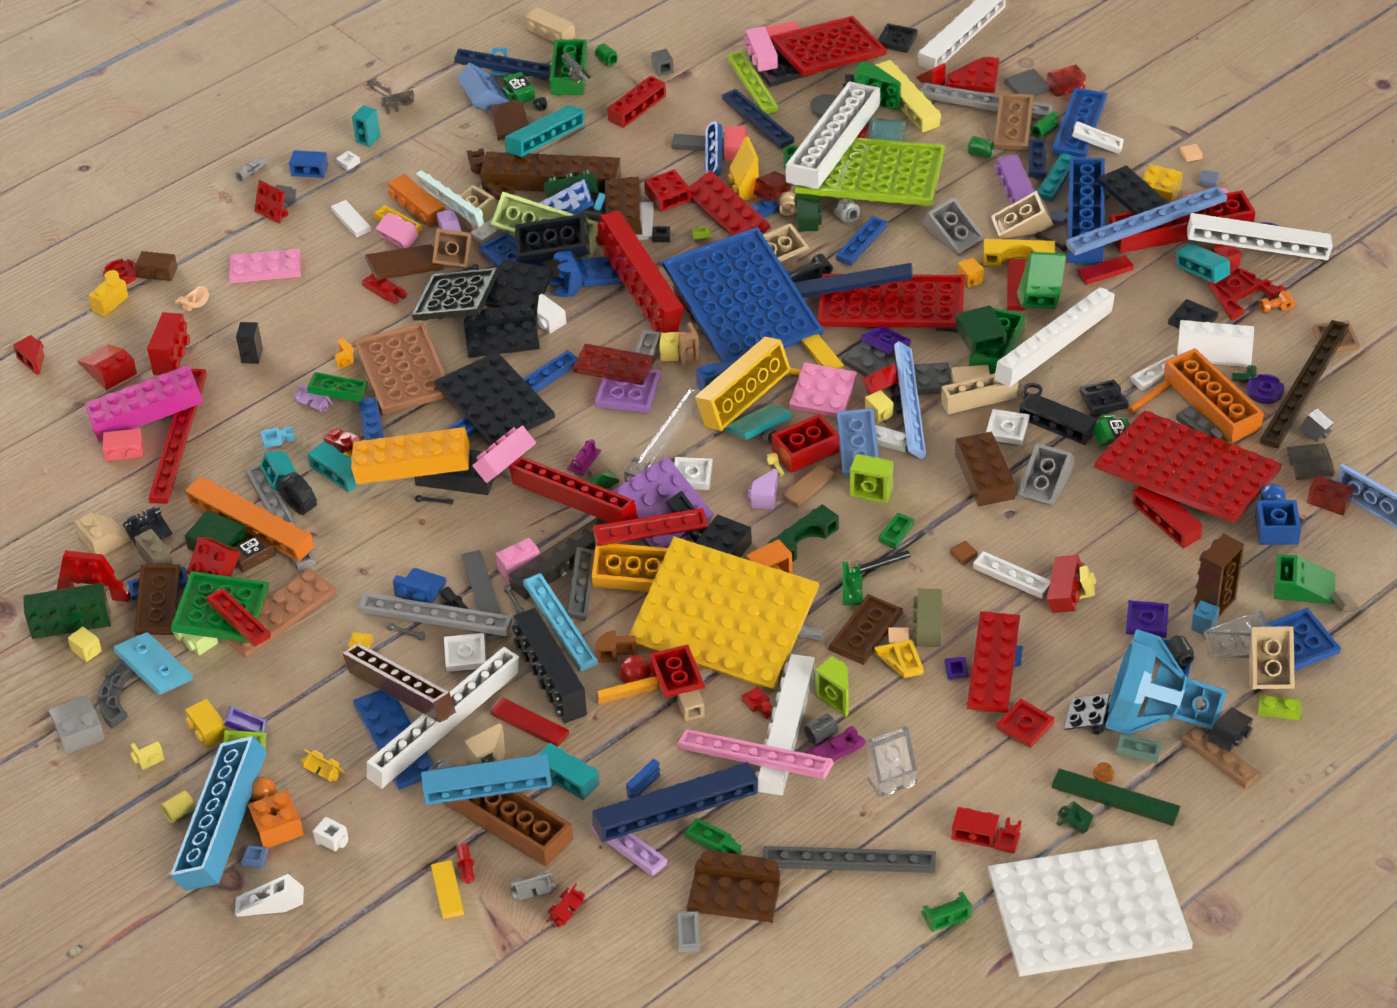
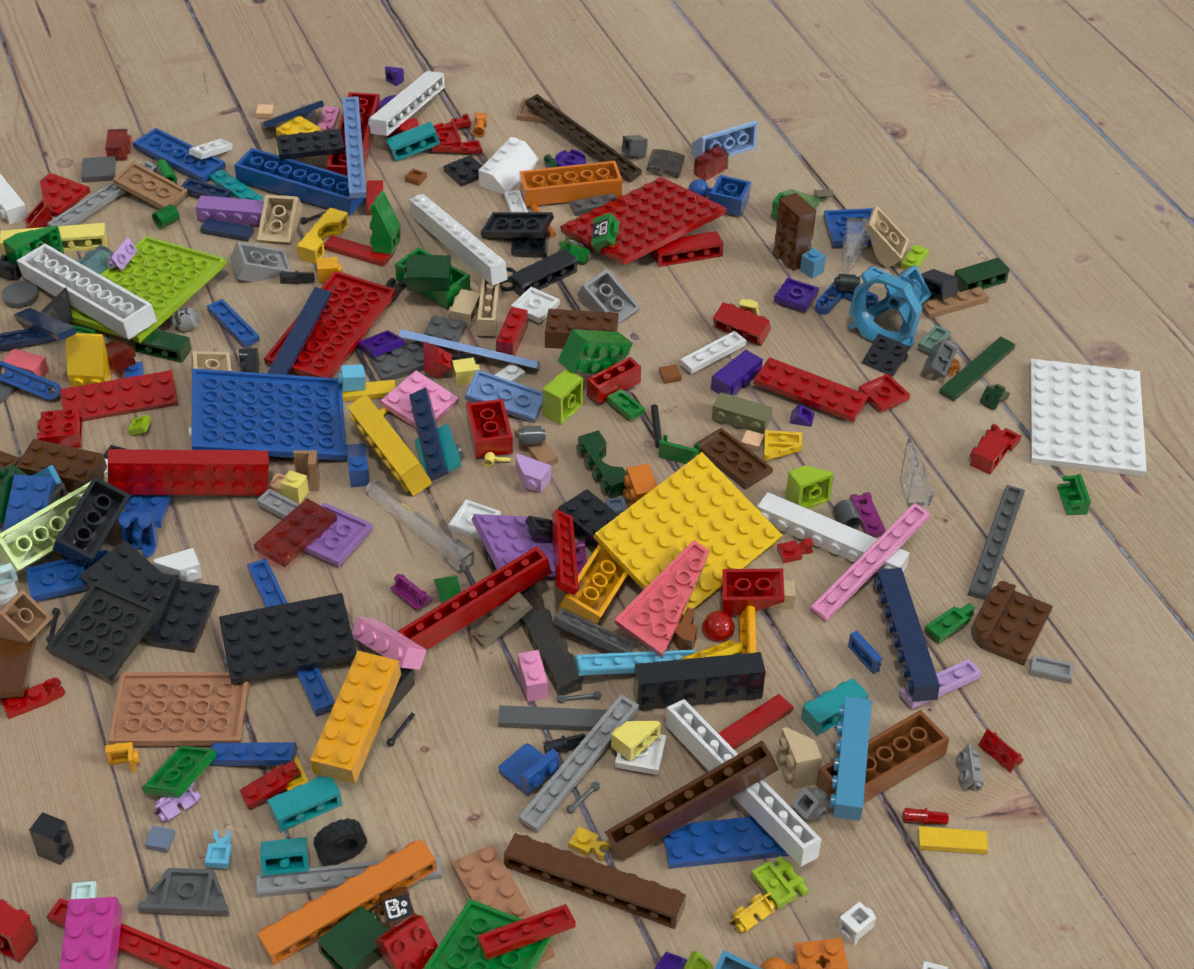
camera: 75 degrees left, 0 degrees up
(218, 382) = (84, 890): none -> light aqua tile
(233, 433) = (186, 893): none -> dark grey wing
(278, 403) = (160, 839): none -> sand blue tile
(319, 657) = (595, 880): none -> reddish brown brick
(352, 775) = (771, 880): none -> lime plate
(465, 637) = (634, 737): none -> light yellow slope
(569, 520) = (502, 620): none -> dark tan plate
(589, 668) = (725, 648): none -> yellow plate
(622, 612) = (659, 607): none -> coral wing
(768, 126) = (45, 324): none -> dark blue tile
(768, 406) = (428, 434): none -> dark blue plate
(787, 204) = (147, 354): tan wheel -> none
(801, 130) = (59, 307): none -> clear smoke slope
(808, 472) = (531, 435): none -> dark grey brick
(820, 334) = (351, 377): none -> medium azure brick
(902, 139) = (122, 255): none -> lavender hinge
(924, 510) = (618, 376): none -> red brick
(932, 476) = (593, 350): none -> green brick
(949, 256) = (296, 277): none -> black axle
(951, 421) = (512, 331): none -> red brick
(979, 596) = (736, 373): none -> dark purple brick
(991, 192) = (227, 230): none -> dark blue tile
(1096, 754) = (939, 360): none -> dark grey hinge
(1116, 376) = (517, 225): none -> black plate
(1130, 435) = (604, 231): none -> green piece
(1158, 287) = (415, 177): none -> dark orange tile
(1184, 167) = (291, 114): none -> dark blue tile
(1278, 768) = (982, 275): none -> dark green brick
(1314, 217) = (394, 75): none -> dark purple slope

